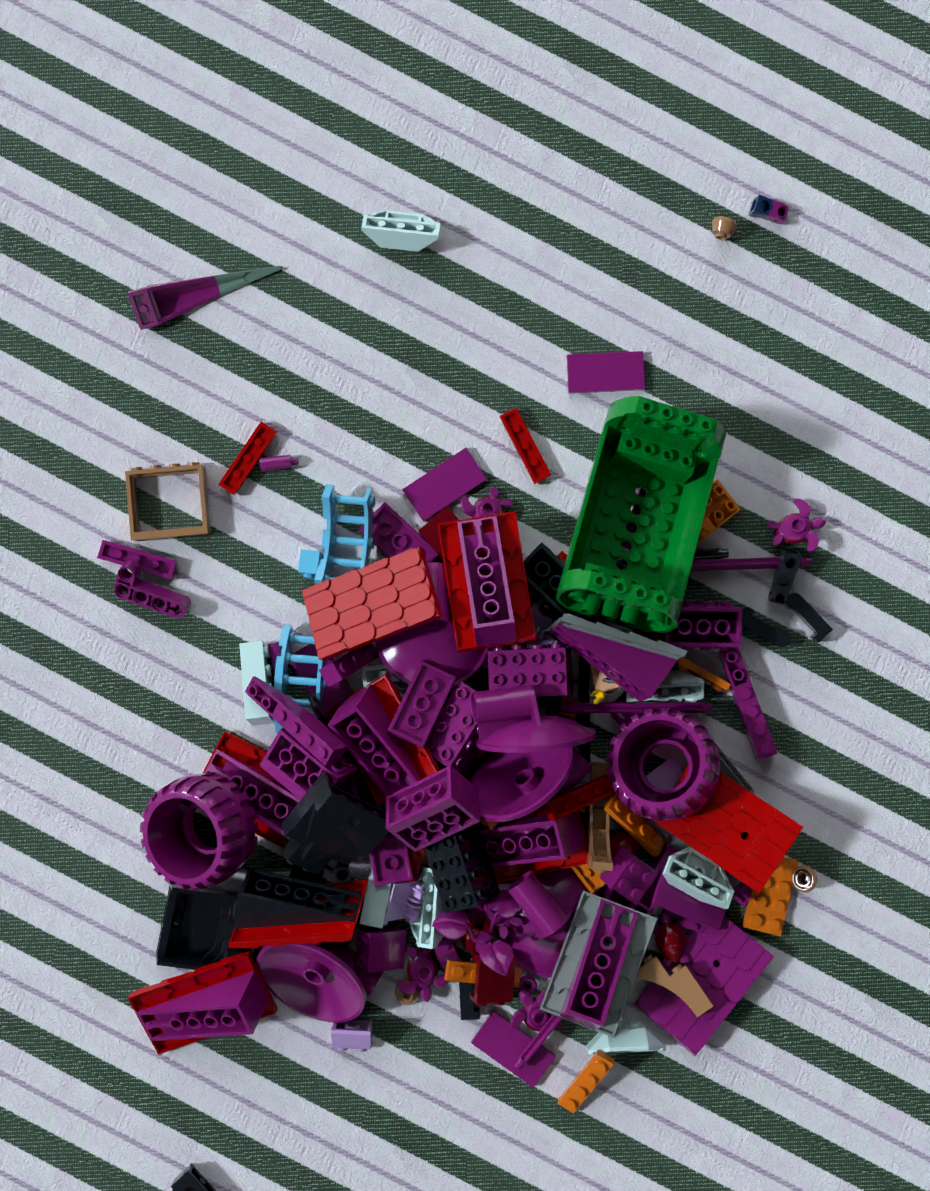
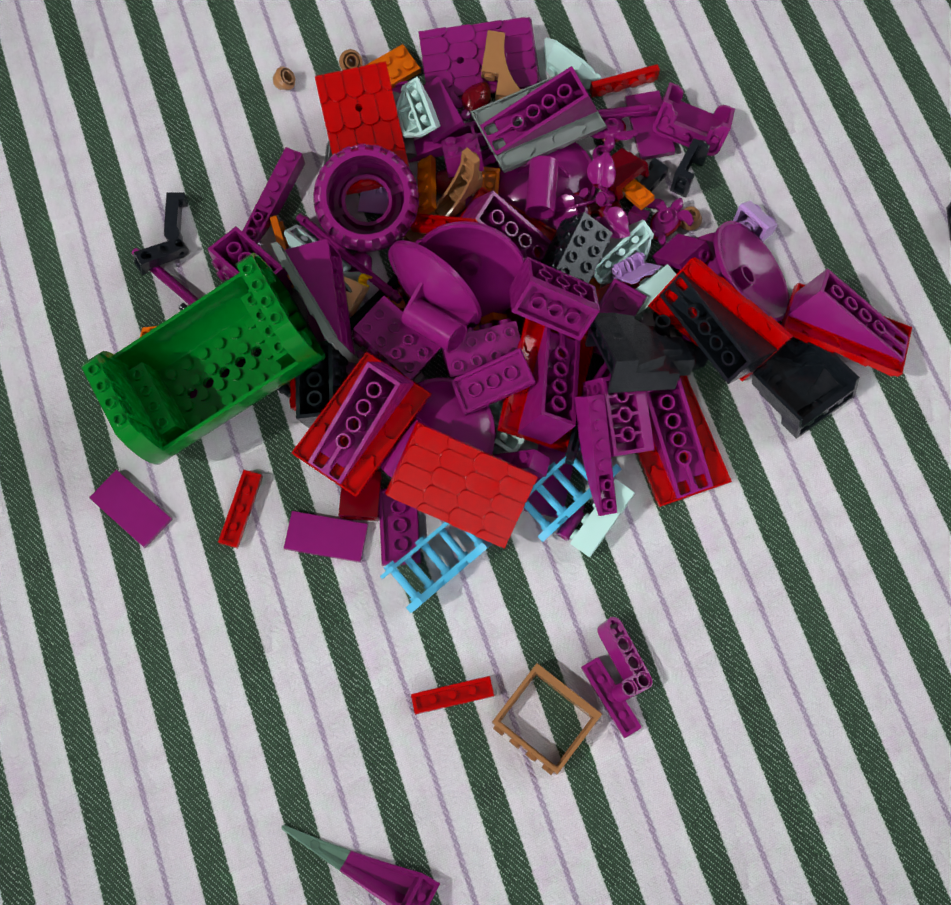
camera: 130 degrees left, 15 degrees down
(171, 834) = (771, 439): magenta tyre -> none
(278, 462) = (432, 670): magenta cylinder -> none
(309, 563) = (480, 567): medium azure brick -> none
(400, 230) = (161, 760): light aqua wedge -> none
(441, 1016) = (683, 178): none -> black panel
(477, 761) = (493, 318): none -> orange tile
(477, 1079) = (684, 122): none -> magenta windscreen
(486, 505) = (313, 487): magenta animal -> none
(571, 1063) = (624, 80): none -> red plate
(586, 1081) = (616, 61): orange plate -> none
(776, 637) = (210, 228): black leg -> none
(797, 527) = (117, 278): magenta animal -> none
(843, 813) = (284, 78): none -> medium nougat cone

